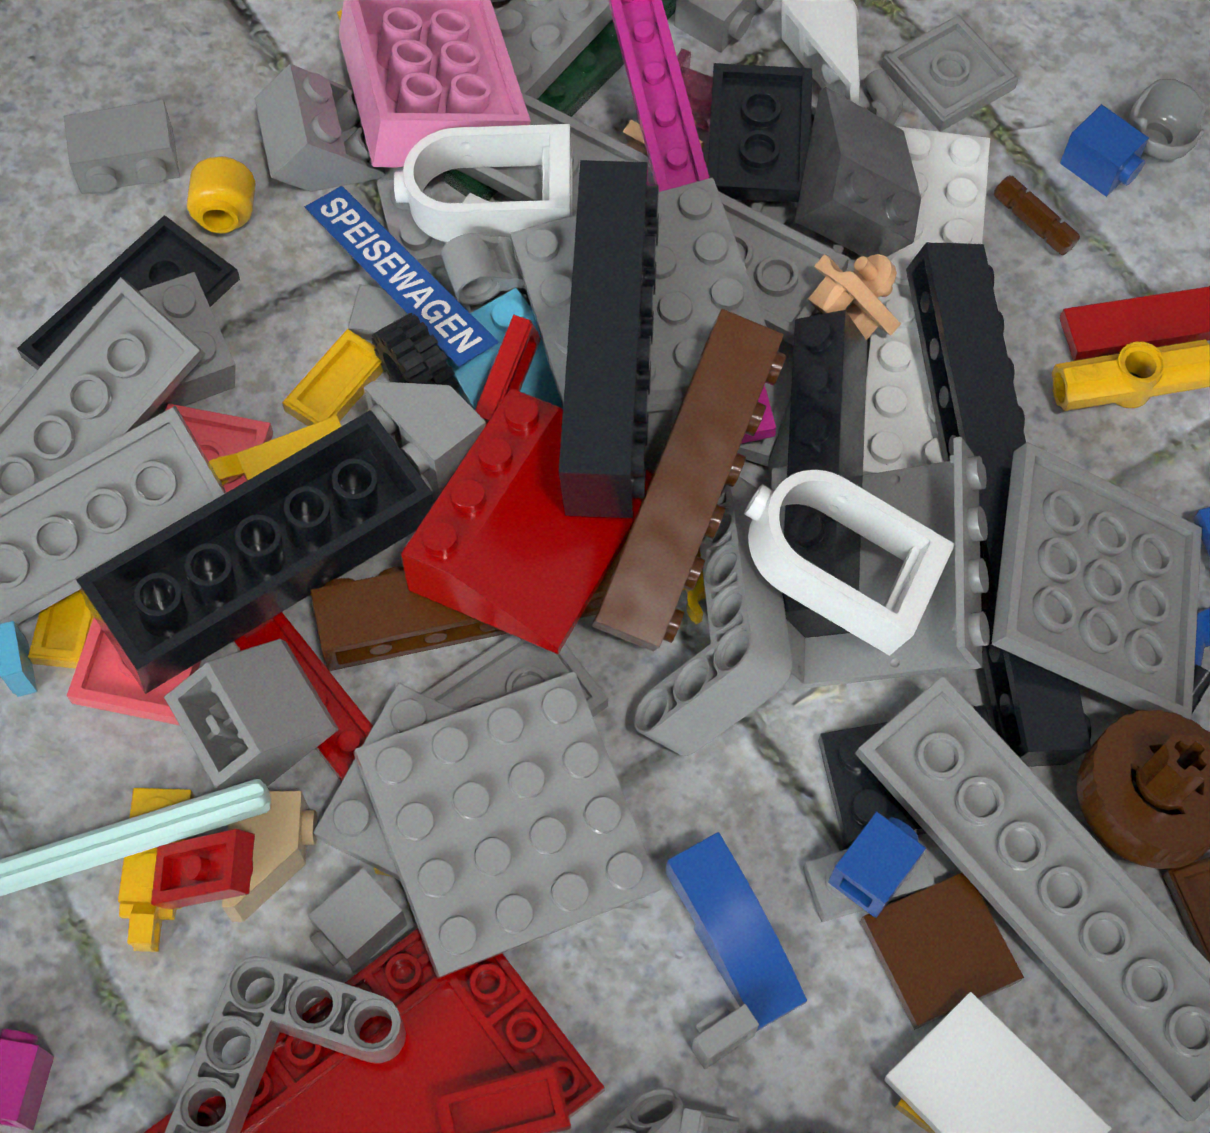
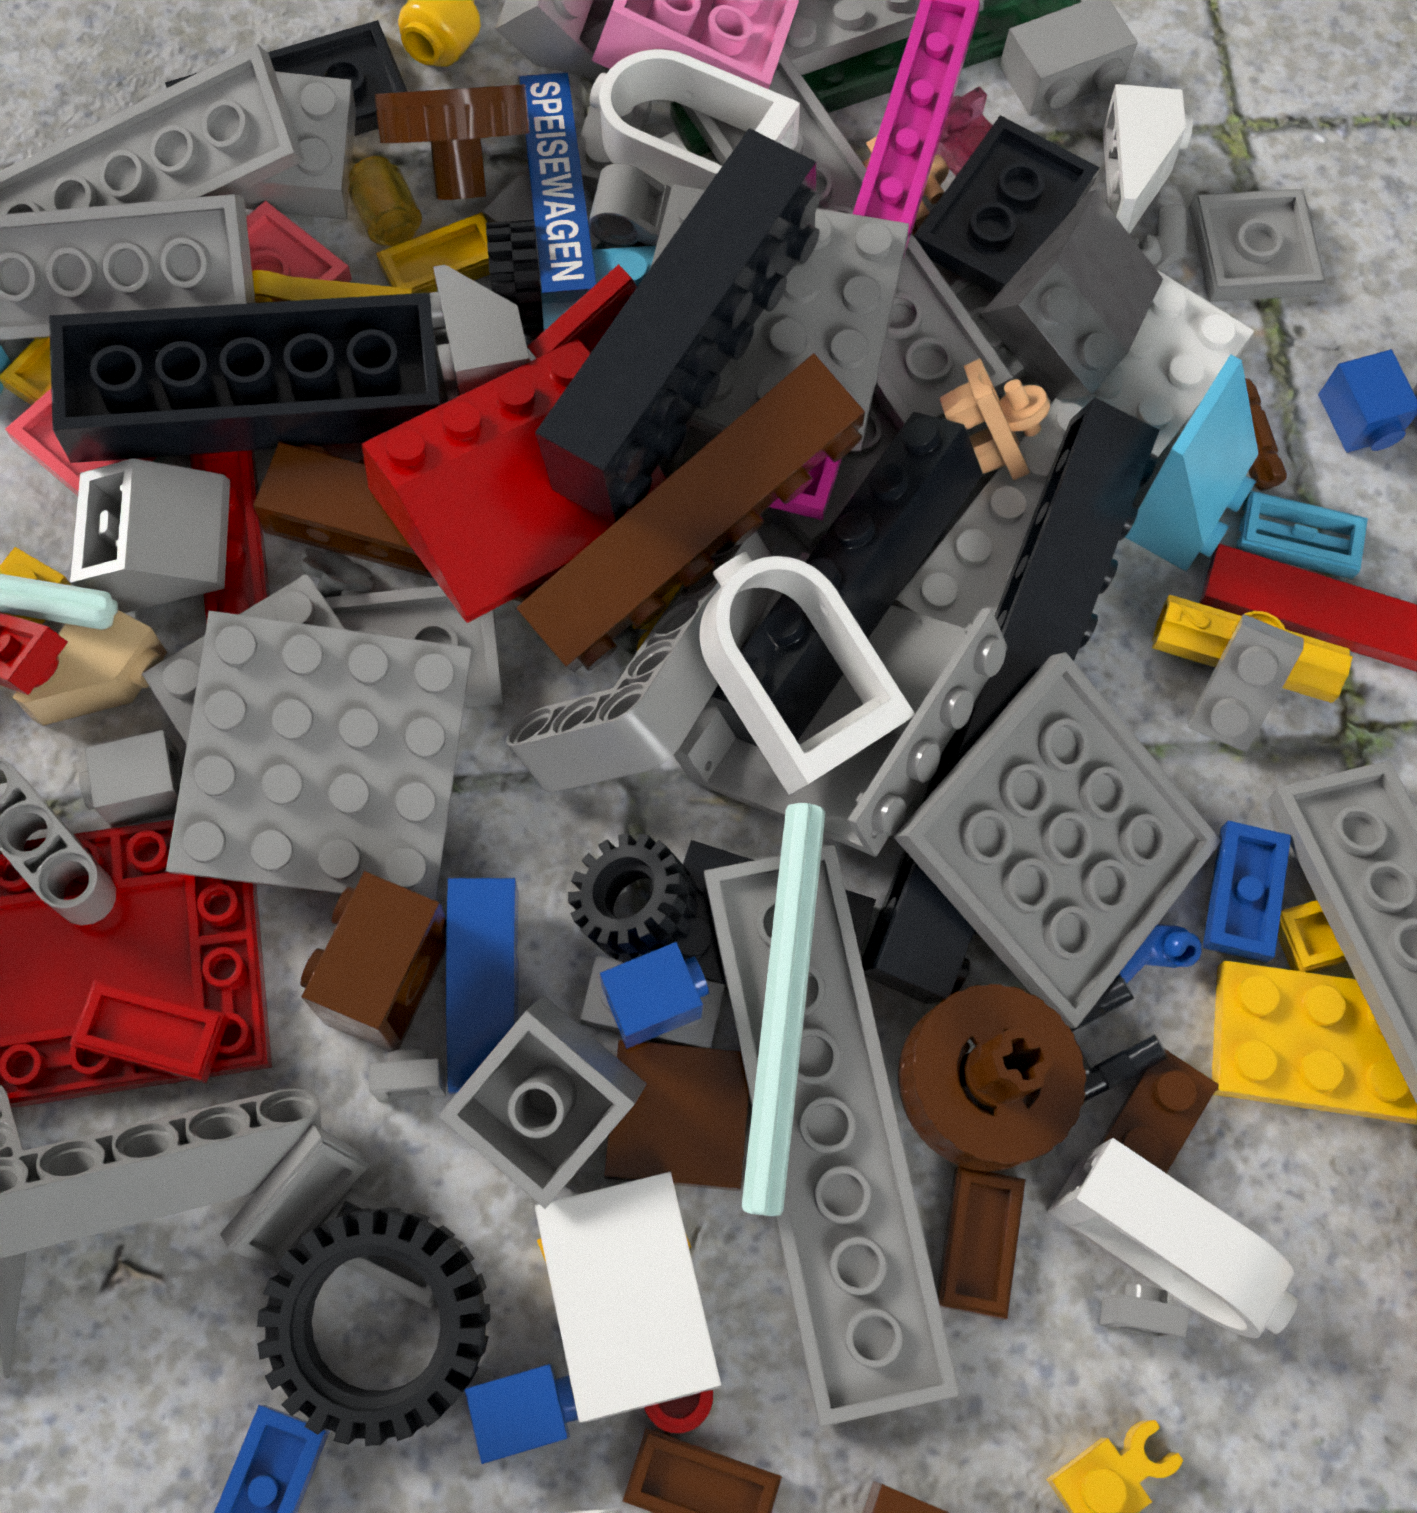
camera: 25 degrees right, 5 degrees up
(266, 358) = (383, 201): none -> clear yellow brick
(294, 268) = (454, 125): none -> reddish brown piece
(414, 671) = (335, 572): none -> dark grey plant
(655, 956) = (376, 961): none -> reddish brown brick
(833, 824) = (611, 875): none -> black tyre
(847, 990) = (543, 1101): none -> light grey brick
(985, 820) = (783, 1011): none -> light aqua axle
(1027, 262) = (1201, 475): none -> medium azure slope
(1118, 280) = (1299, 543): none -> medium azure tile
(1152, 401) = (1245, 682): none -> light grey plate

